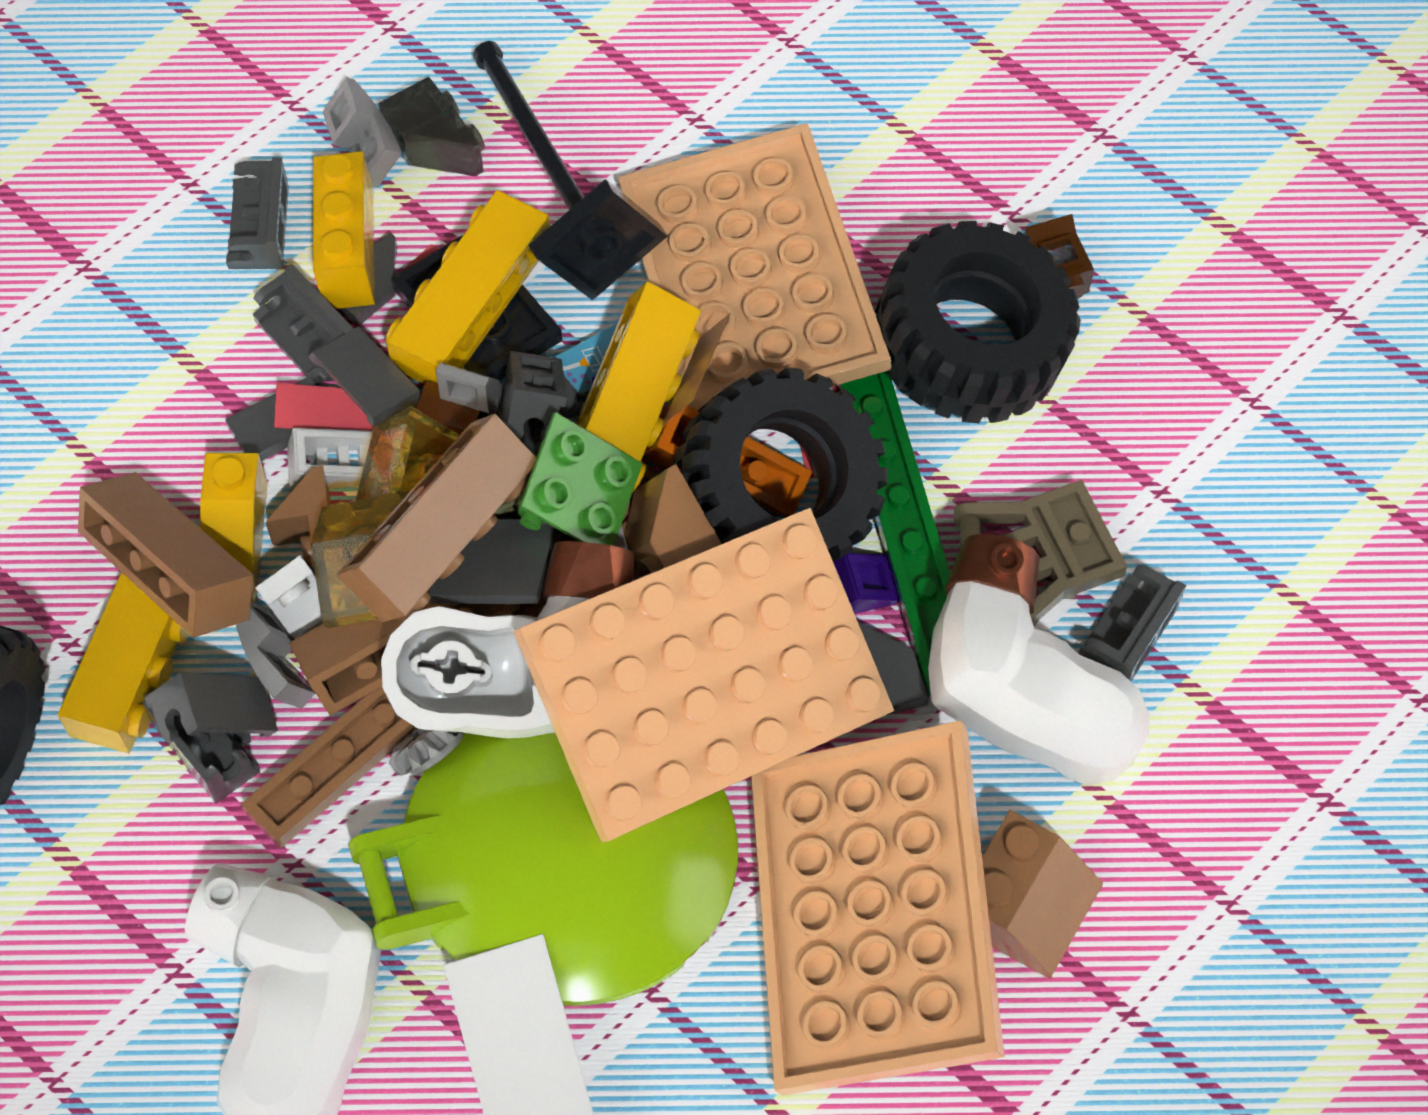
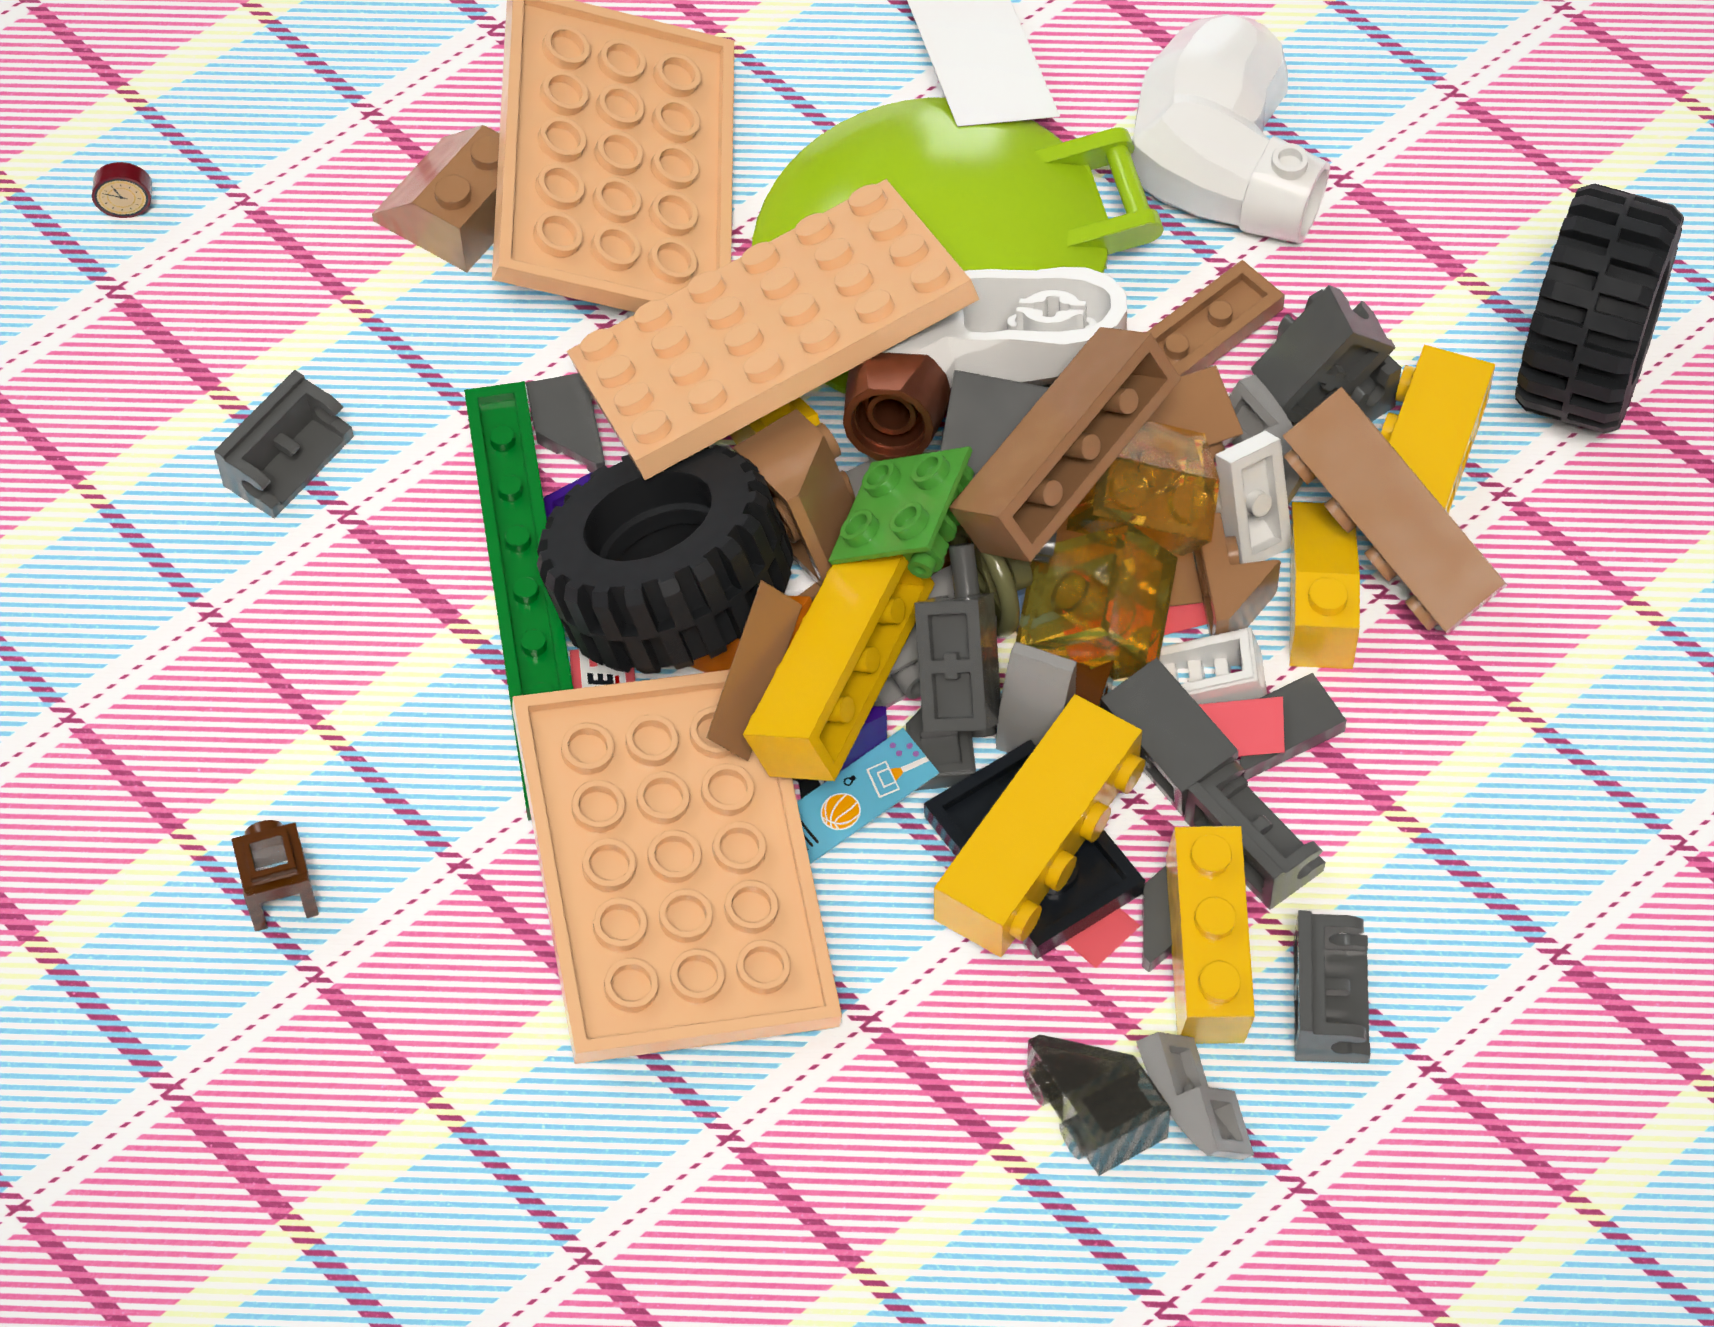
camera: 175 degrees left, 5 degrees down
(600, 231) = (874, 870): black tile -> none
(1000, 274) = (357, 698): black tyre -> none
(1023, 683) = (426, 360): white piece -> none
(1066, 533) = (333, 535): dark tan plate -> none
(1346, 885) = (121, 190): none -> tile

